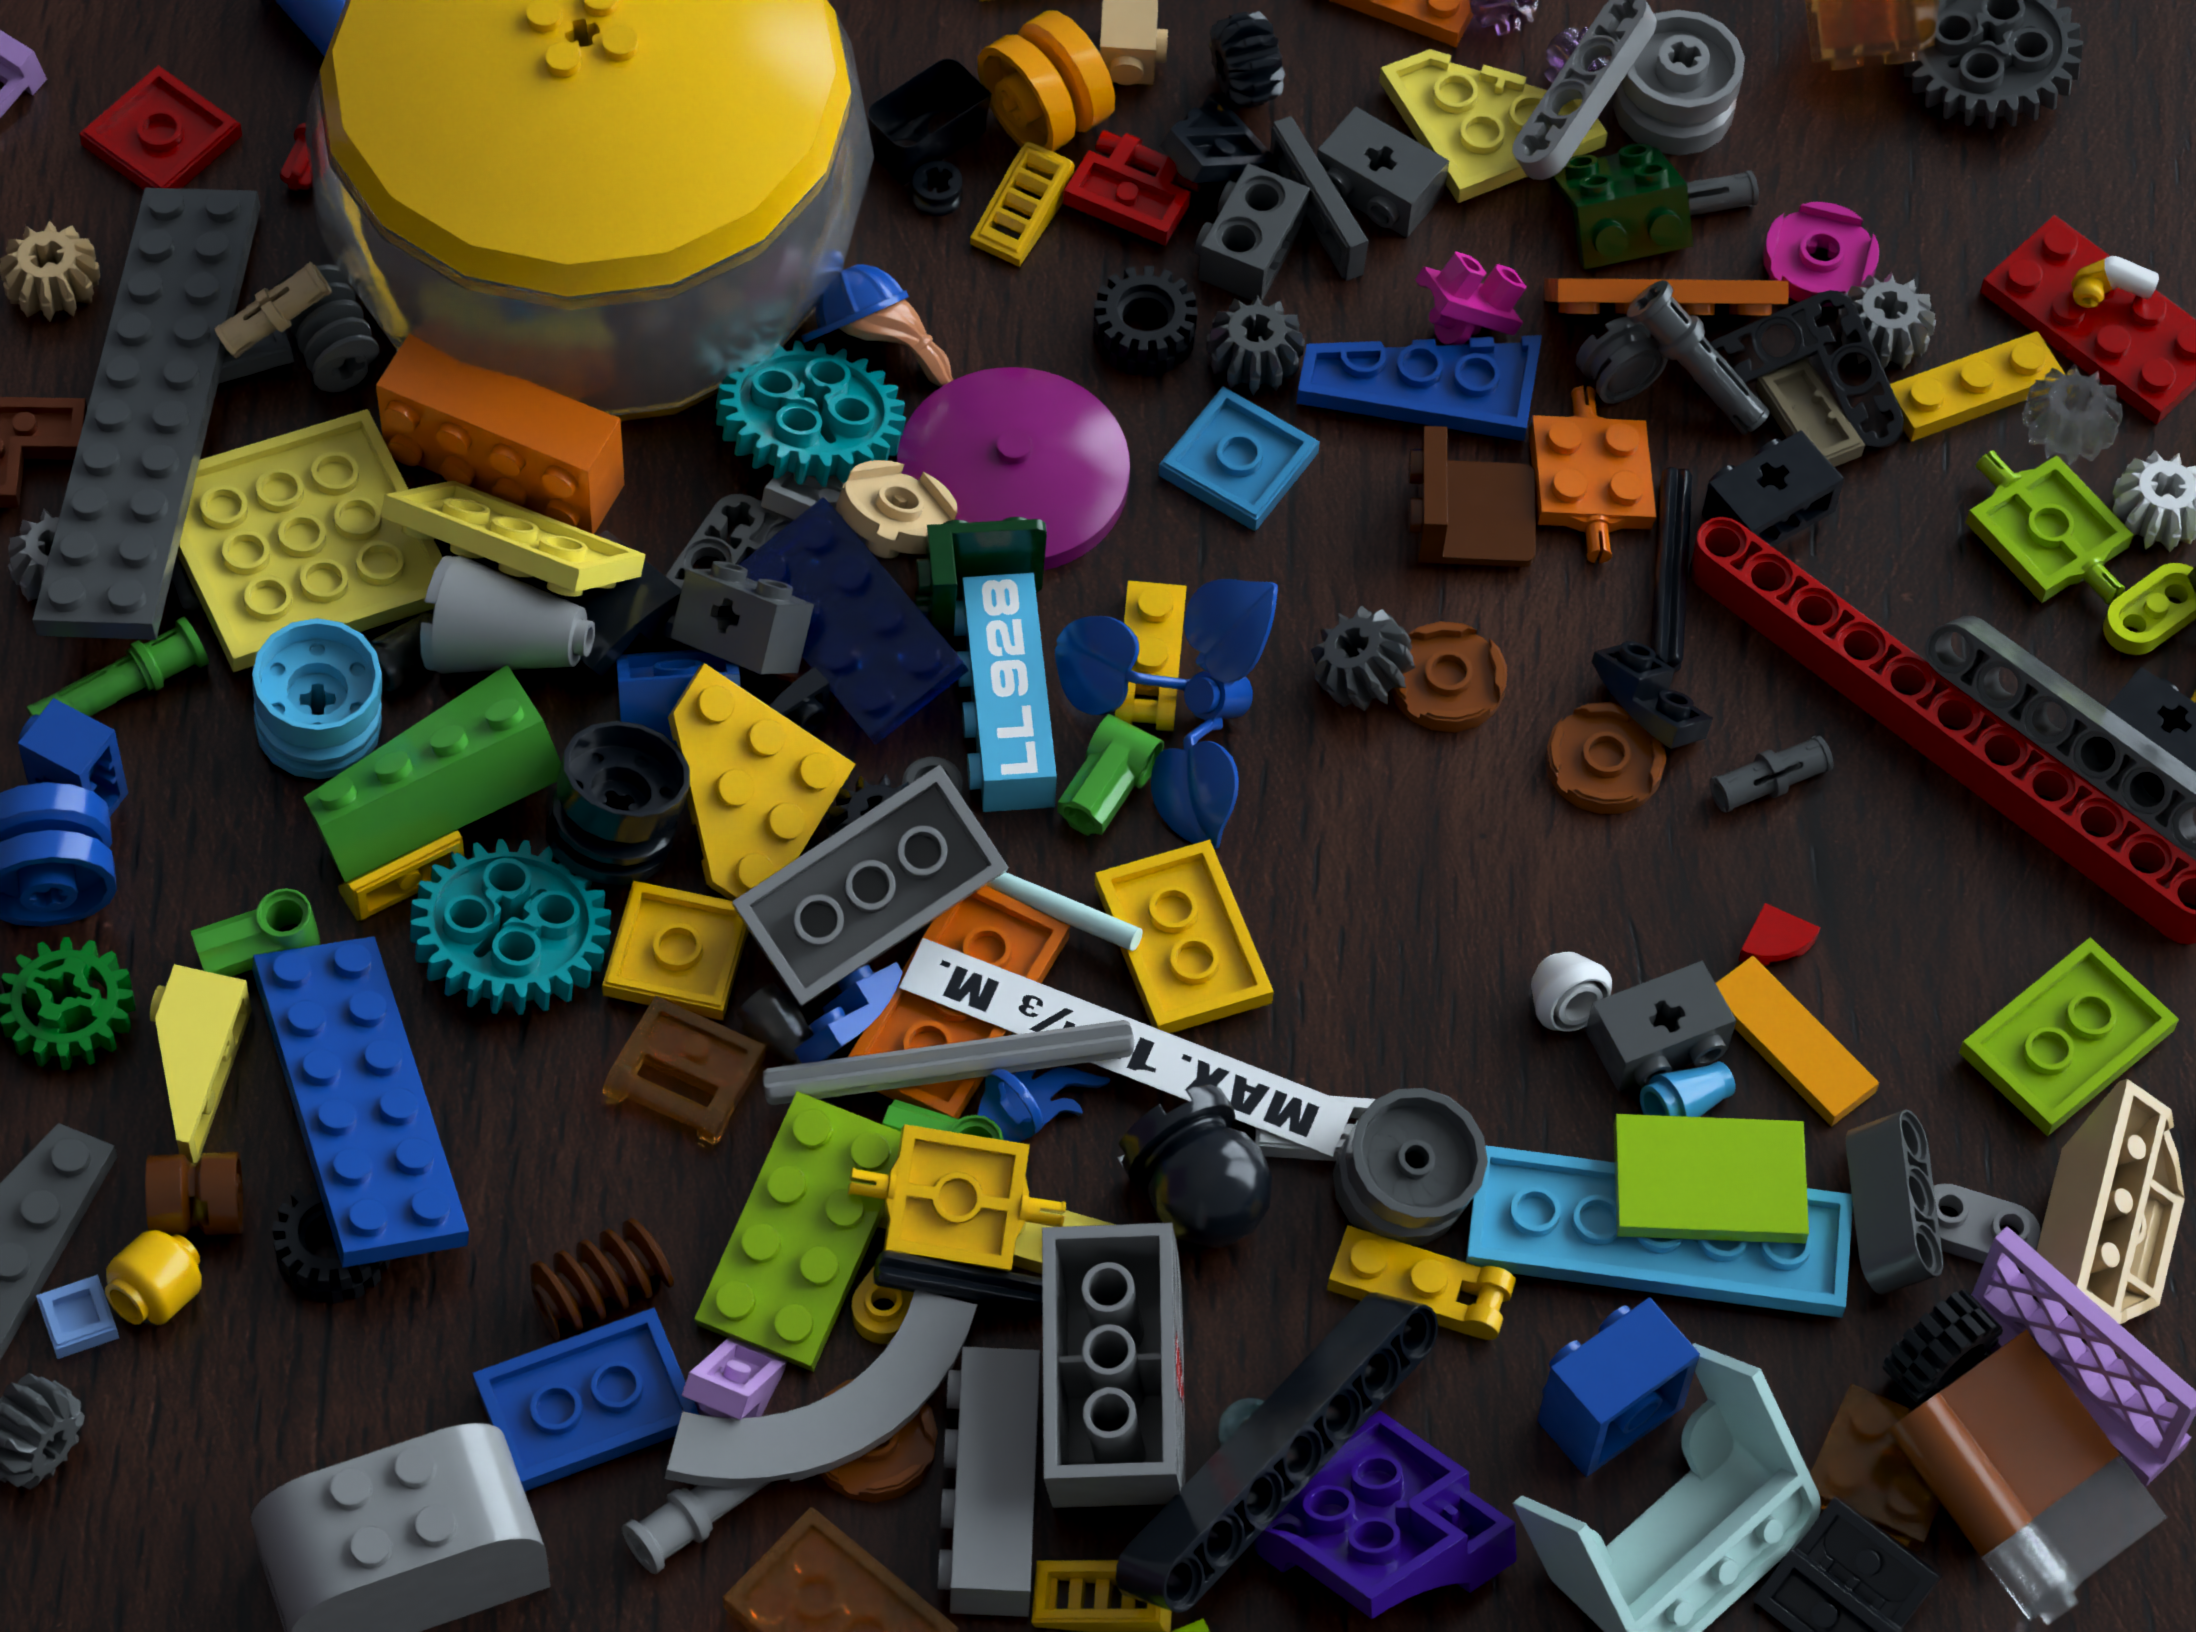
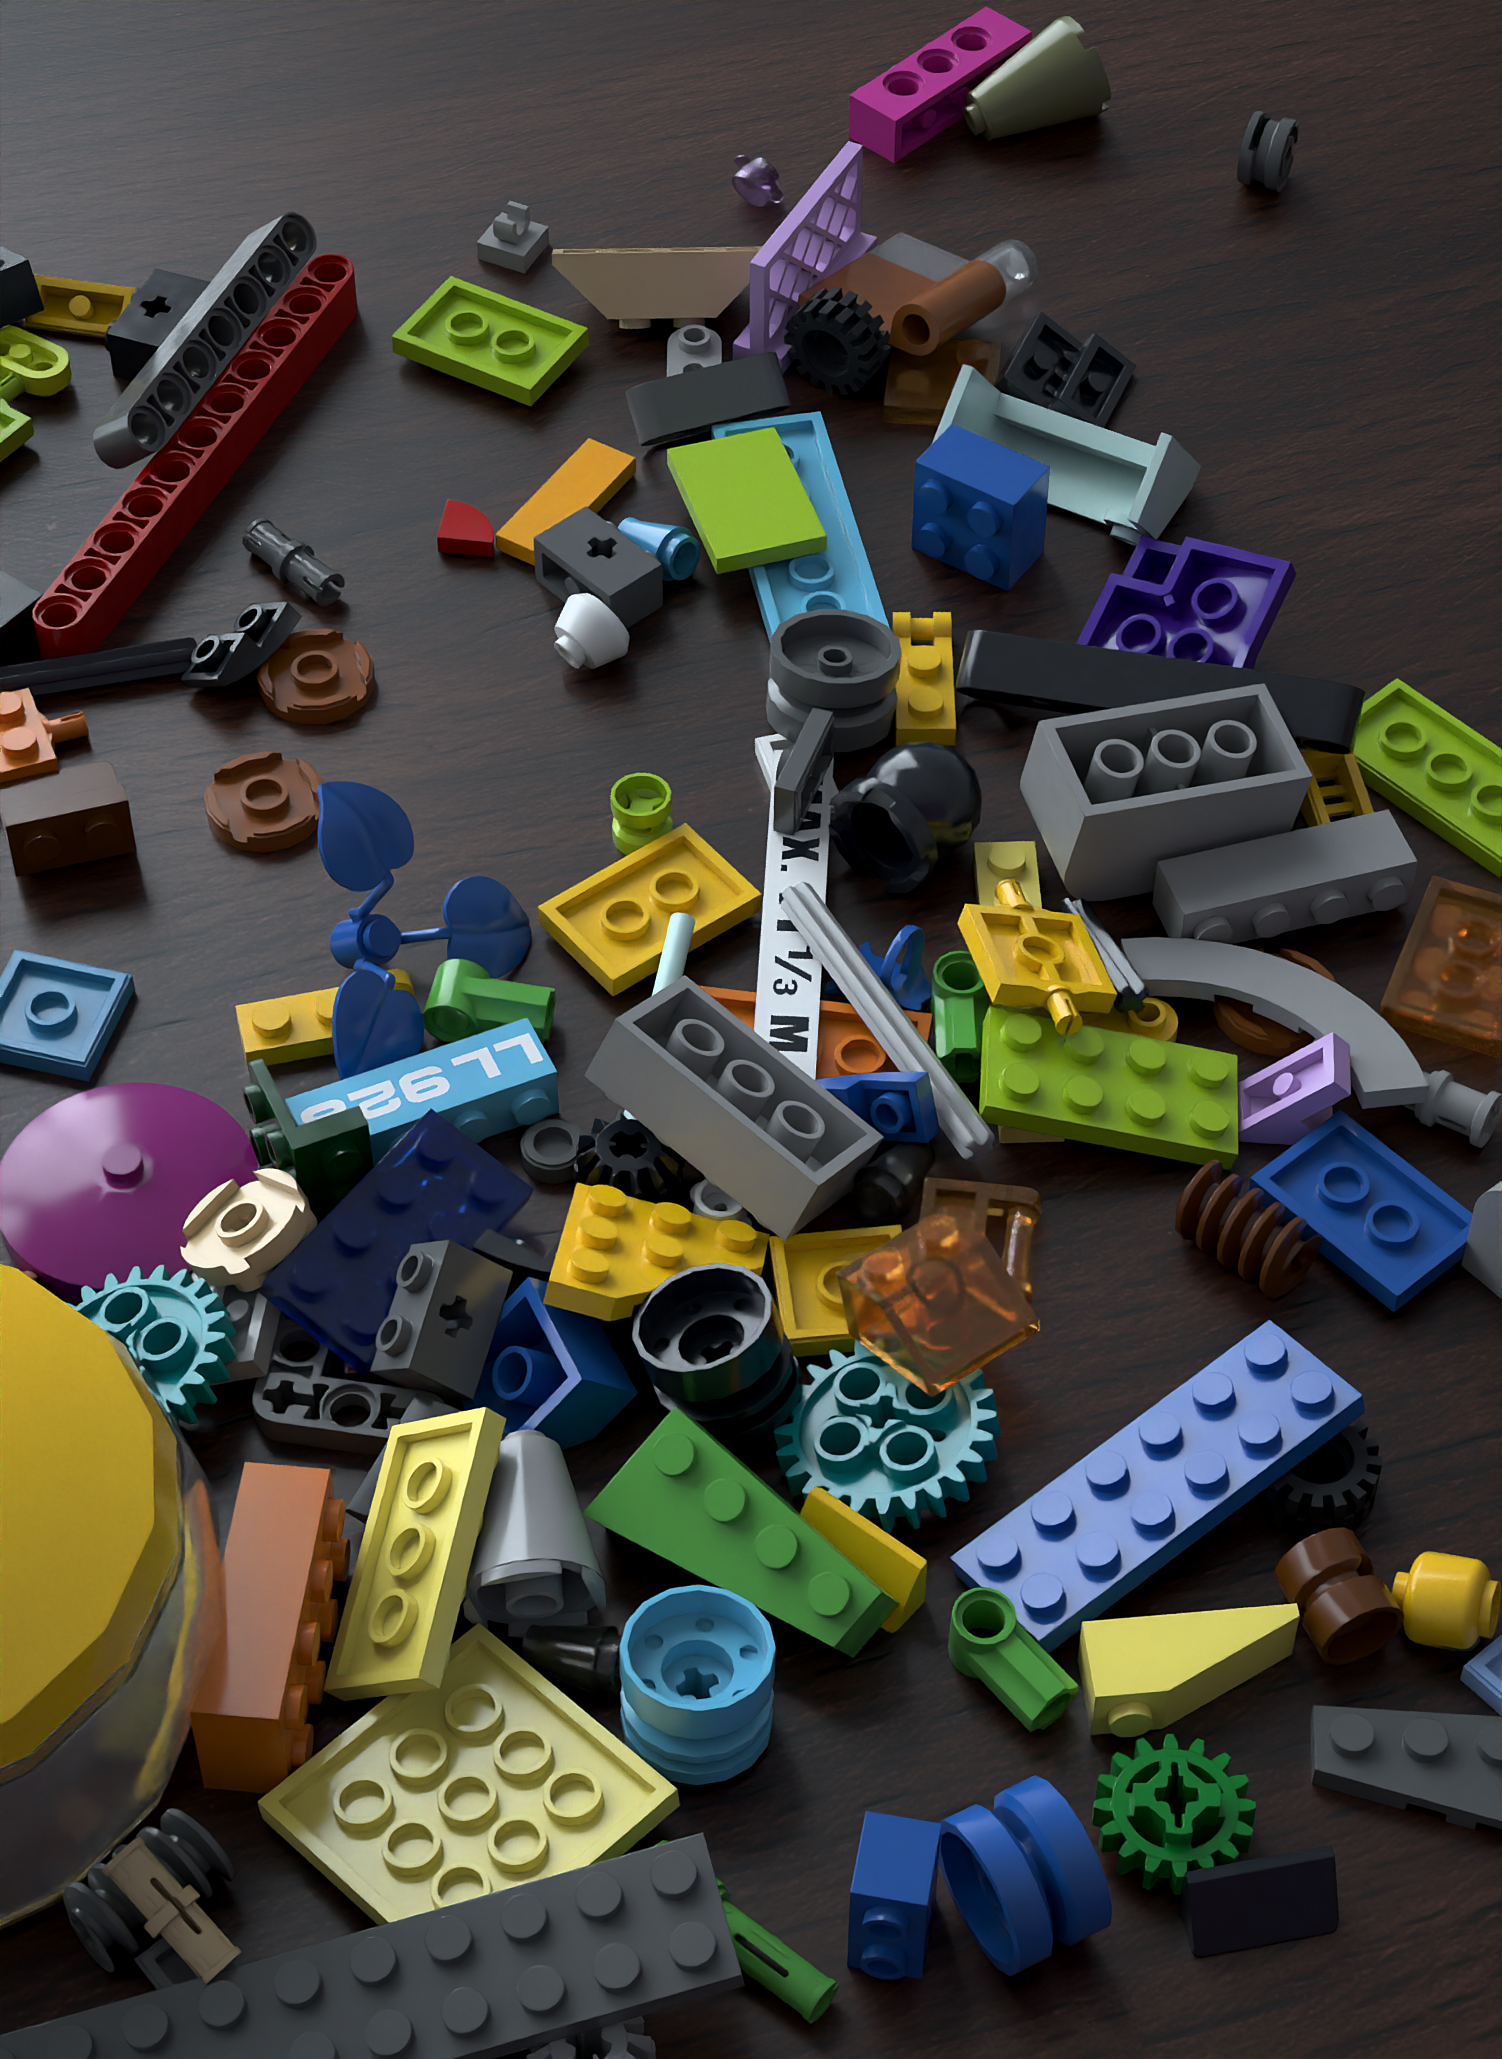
camera: 105 degrees left, 10 degrees down
(589, 969) = (935, 1302): none -> clear orange slope
(1285, 1093) = (802, 771): none -> dark grey plate
(1311, 953) = (640, 811): none -> lime wheel
(1362, 658) = (260, 844): dark grey gear -> none

